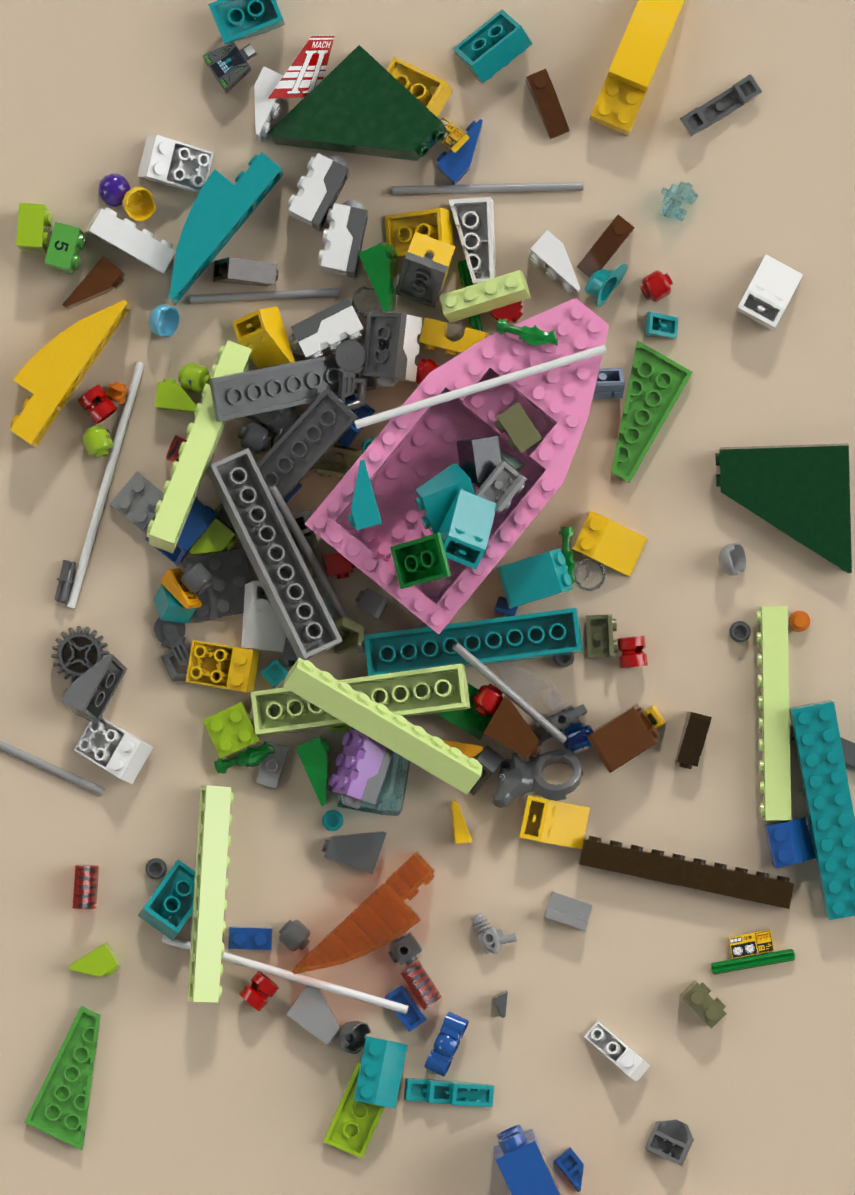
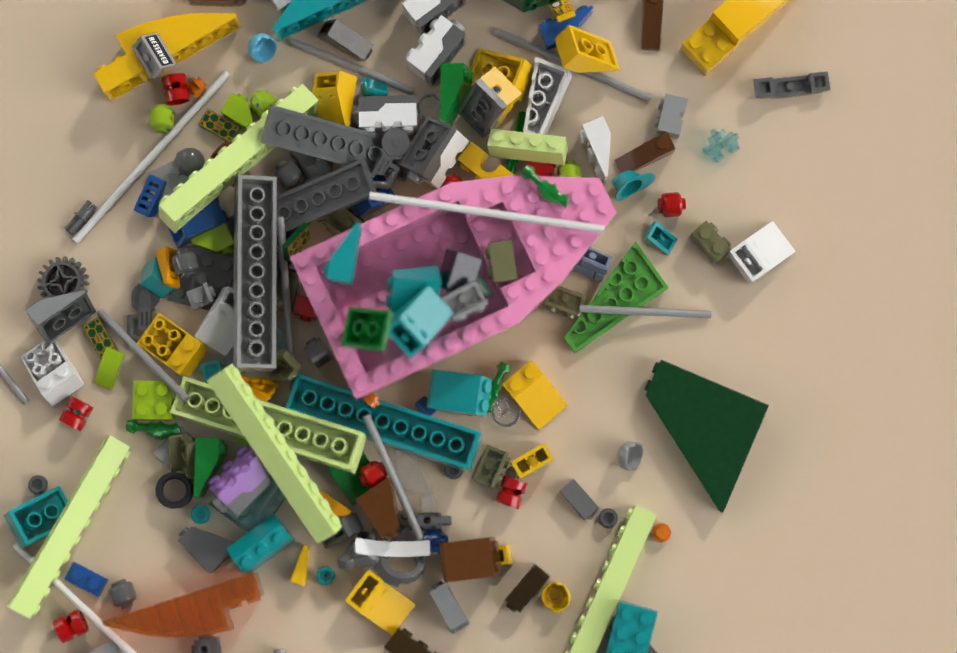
camera: 30 degrees right, 5 degrees down
(62, 382) = (153, 54): none -> light grey panel
(120, 543) = (145, 194): none -> blue slope
(145, 693) = (99, 336): none -> tile
(148, 472) = (189, 160): none -> dark grey hair
(159, 421) = (219, 126): none -> dark green tile
(159, 788) = (73, 420): none -> red wheel
(170, 719) = (109, 368): none -> lime slope
(199, 690) = (143, 355): none -> light grey piece
(228, 603) = (201, 296): none -> light grey bracket
(288, 770) = (182, 454): none -> olive bracket
(295, 793) = (160, 494): none -> black tyre
(299, 309) = (373, 88): none -> teal hair
(299, 504) = (296, 241): none -> dark green tile
(334, 664) = (261, 387): none -> light orange tile
(408, 821) = (260, 544): none -> teal slope
(453, 627) = (372, 400): none -> orange plate
(486, 815) = (325, 570): none -> teal plate
(497, 170) = (585, 52): none -> yellow slope
(538, 303) = (570, 169): none -> lime head
(542, 763) = (392, 548): none -> white sticker
(598, 433) = (565, 301): none -> olive bracket
(611, 189) = (671, 108): none -> light grey brick
(624, 794) = (449, 607): none -> slope
(638, 611) = (532, 461): none -> yellow brick
(680, 407) = (644, 311): none -> light grey piece
(702, 626) = (579, 499): none -> dark grey slope
(713, 305) = (710, 242): none -> olive brick
(725, 734) = (555, 596): none -> yellow hair

